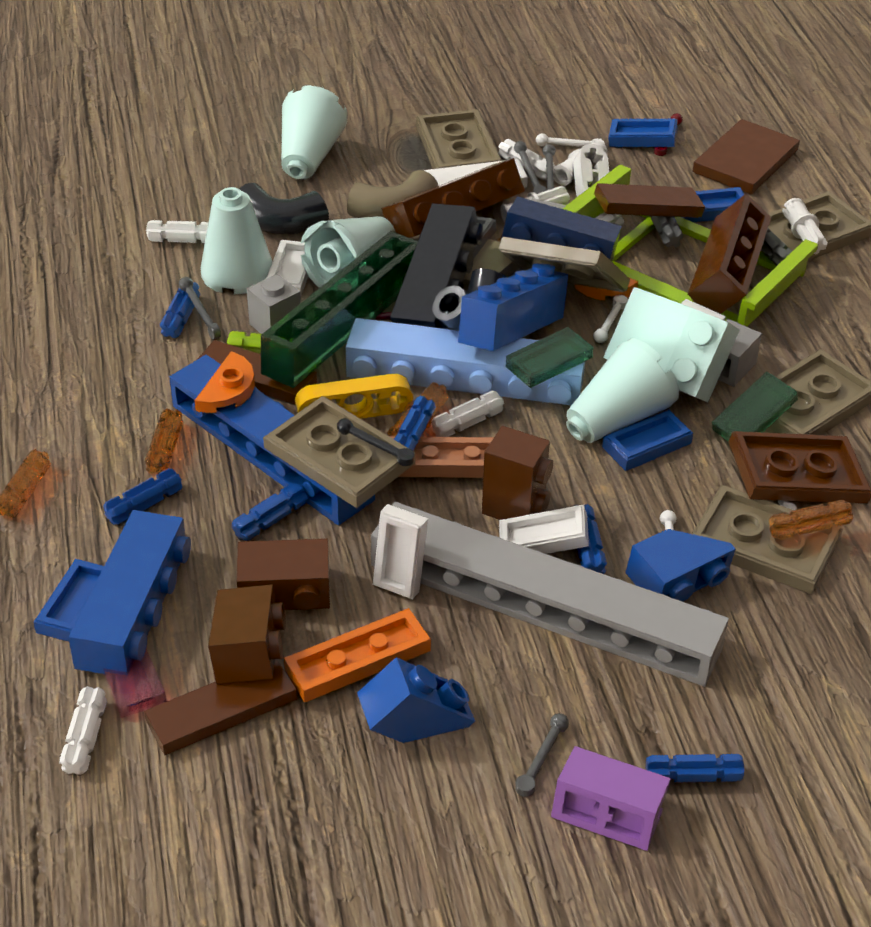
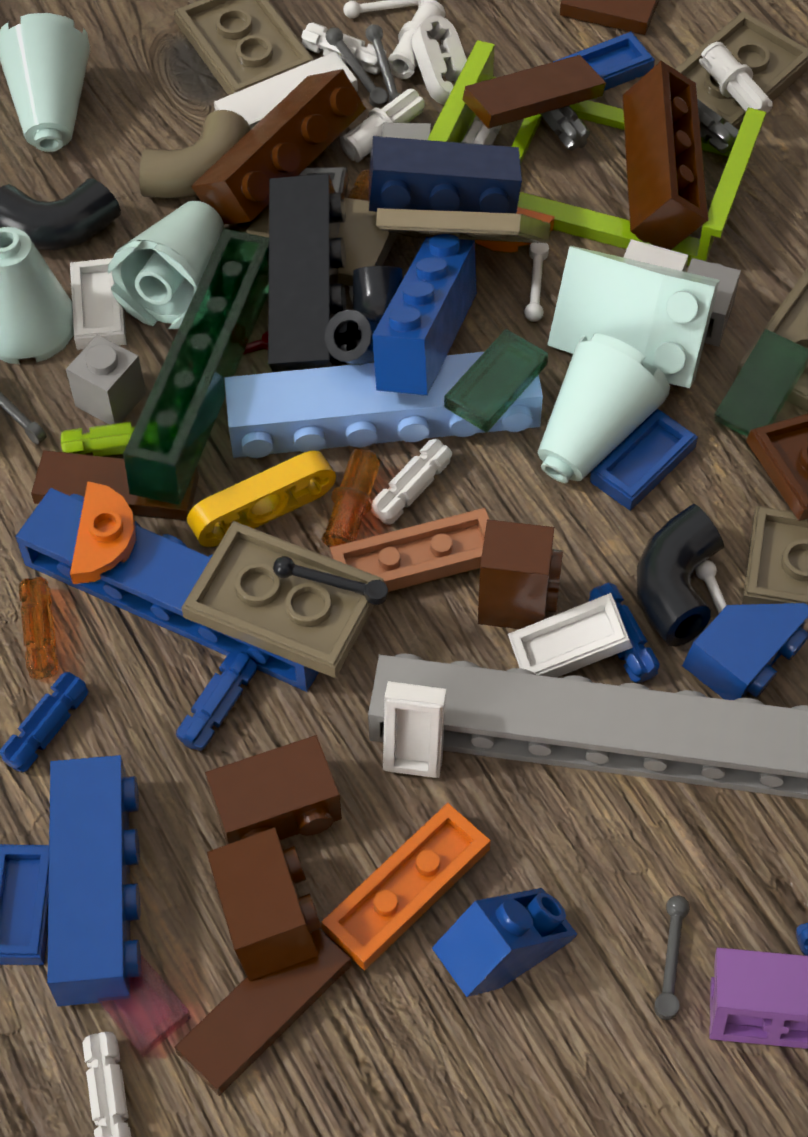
camera: 15 degrees left, 15 degrees up
(415, 422) = (360, 527): blue axle -> none
(638, 503) = (666, 575): none -> black cylinder

